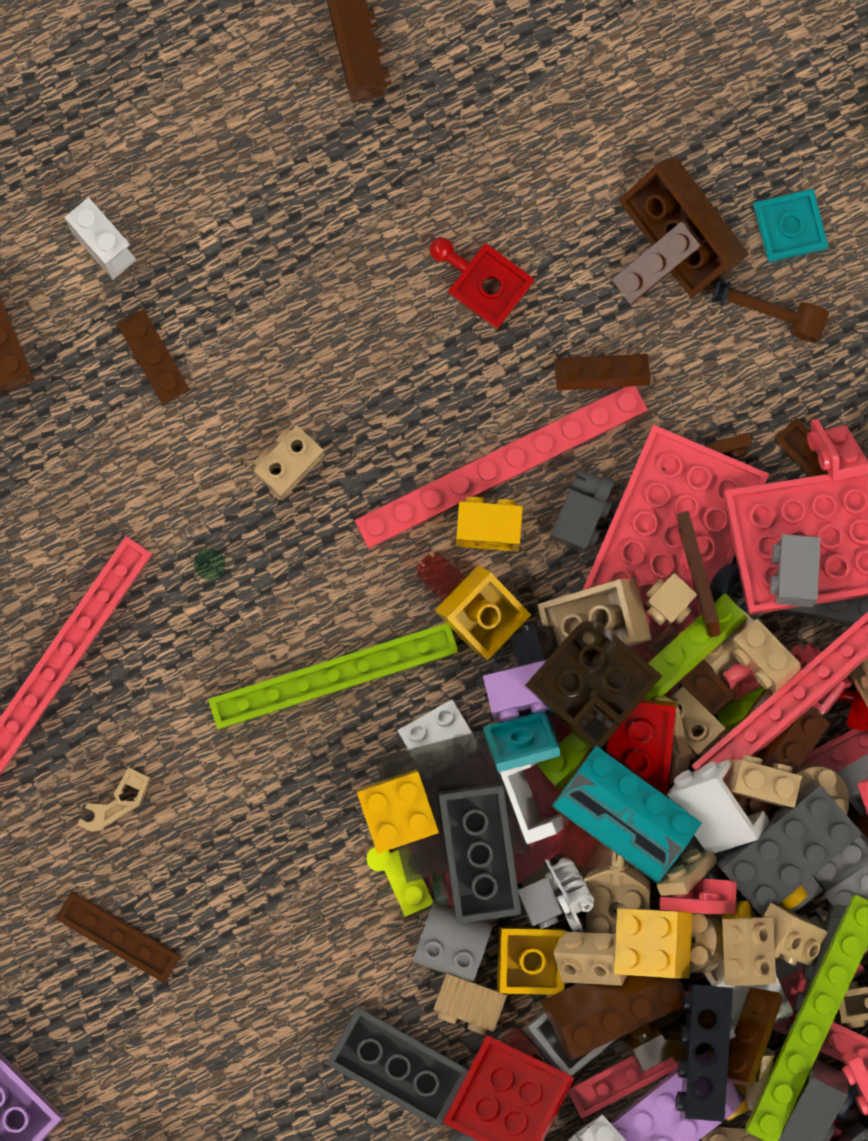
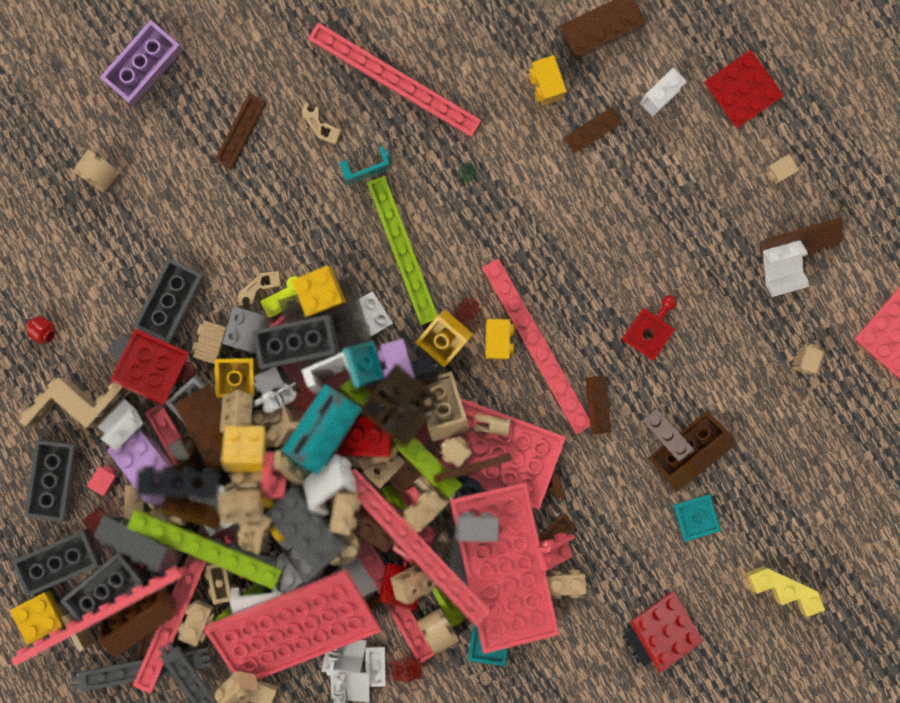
camera: 85 degrees right, 5 degrees up
(69, 424) = (547, 80): none -> yellow brick
(101, 112) = (743, 89): none -> red plate
(204, 757) = (368, 172): none -> teal panel
(236, 59) = (781, 169): none -> tan brick
(293, 465) = (529, 218): tan brick -> none
(383, 929) = (253, 287): none -> tan piece
(397, 63) = (785, 268): none -> white panel
(440, 889) = (276, 320): tile -> none
(545, 34) = (808, 359): none -> tan brick
(582, 510) = (511, 396): dark grey hinge -> none
(629, 533) = (497, 424): none -> tan hinge
(806, 322) = (636, 529): reddish brown piece -> none

